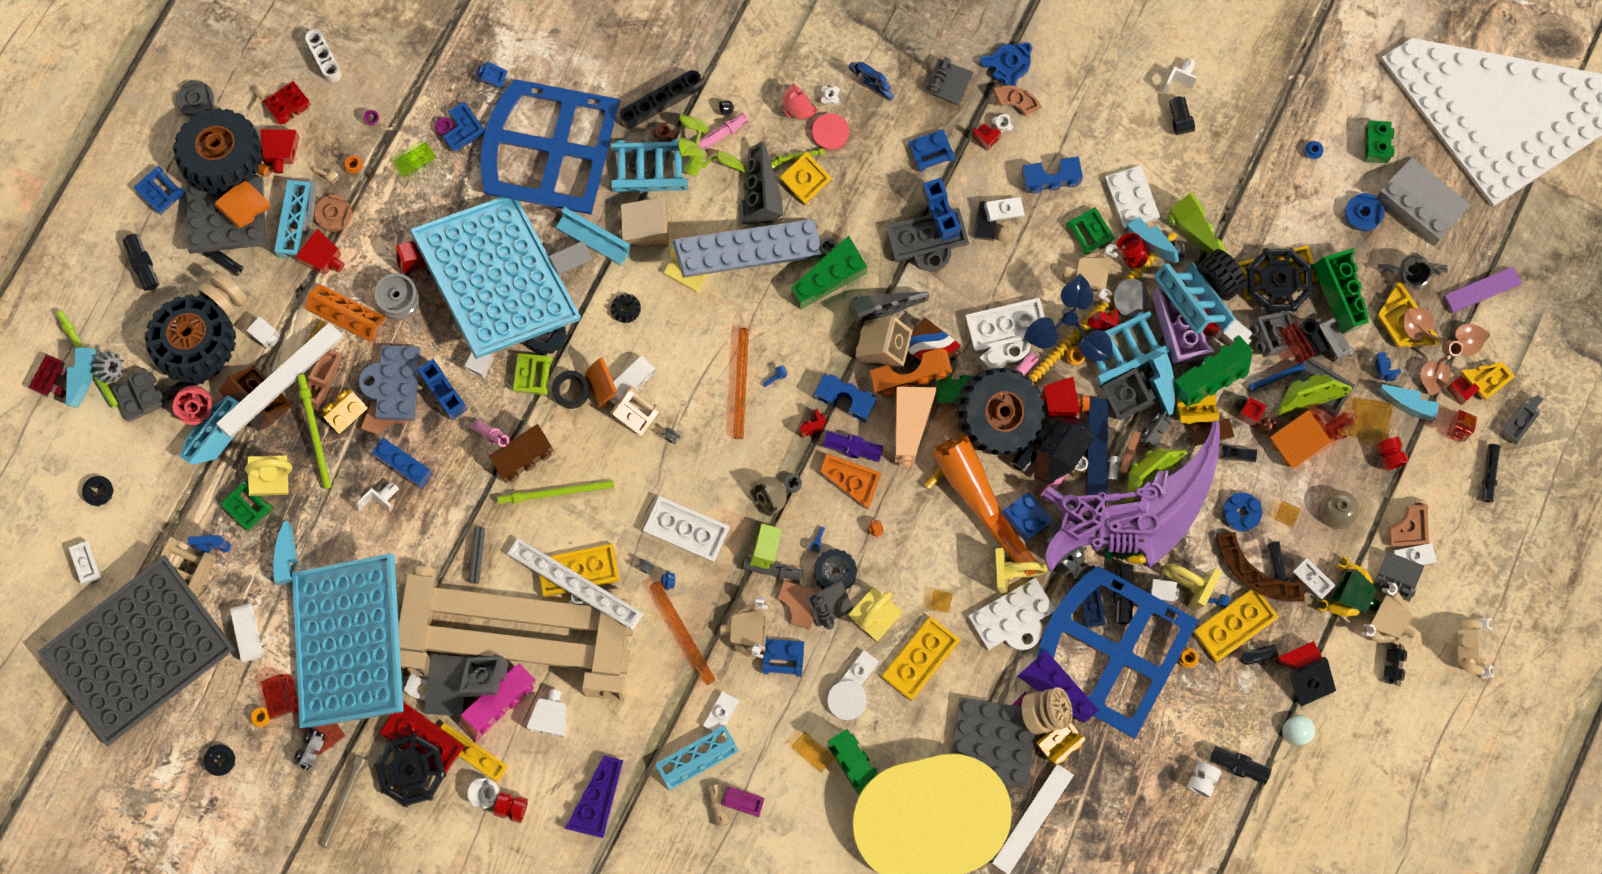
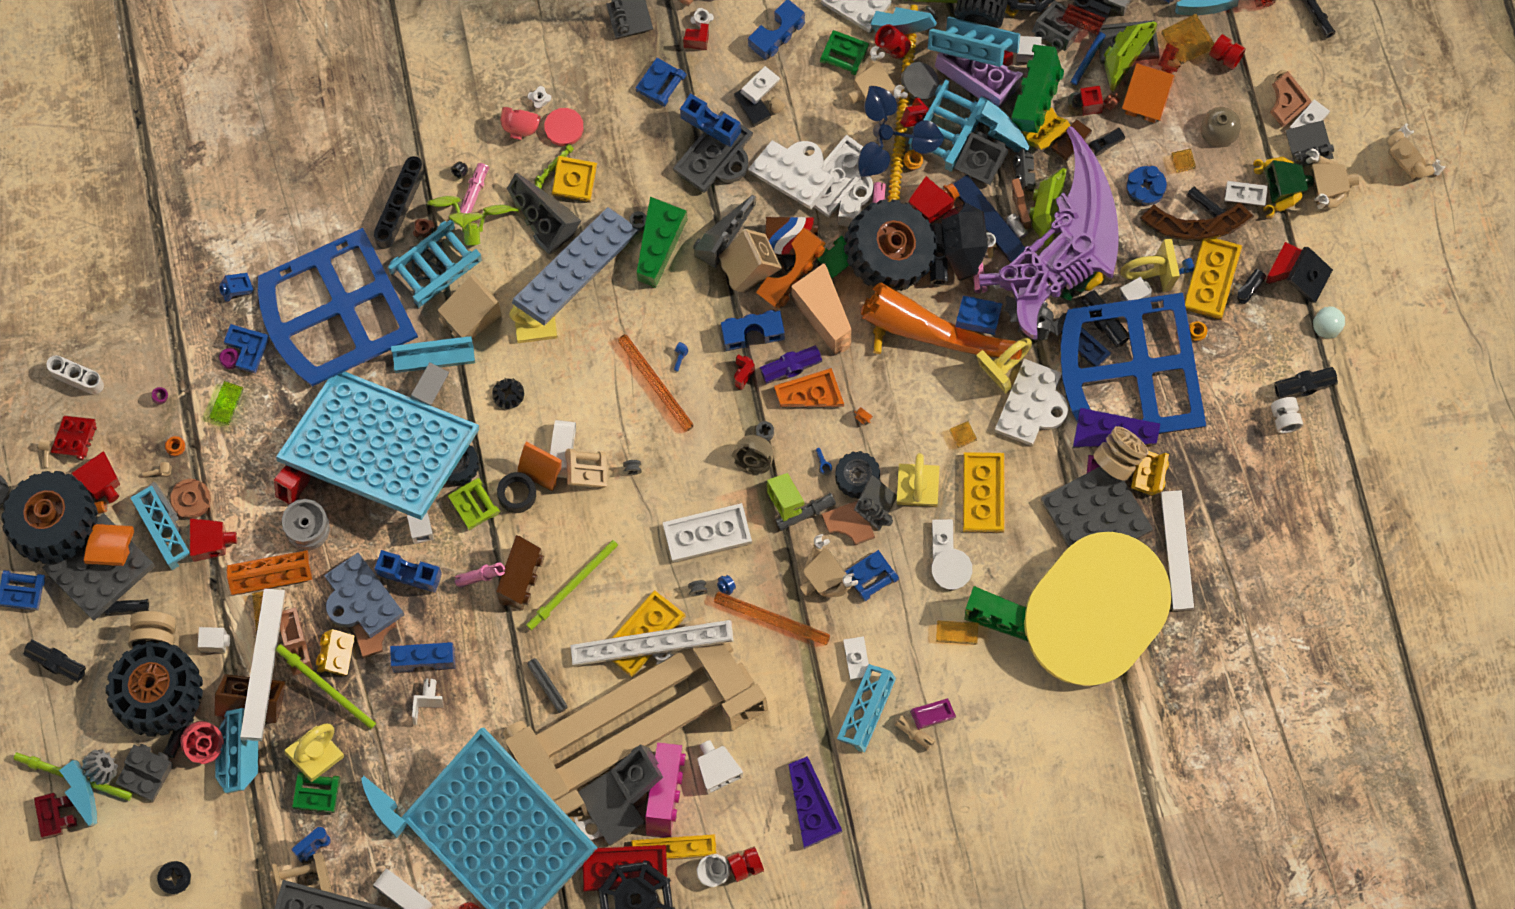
camera: 35 degrees left, 5 degrees down
(872, 78) = (565, 57): blue tile -> none
(975, 297) = (793, 171): none -> white plate
(1397, 657) = (1366, 220): black hinge -> none

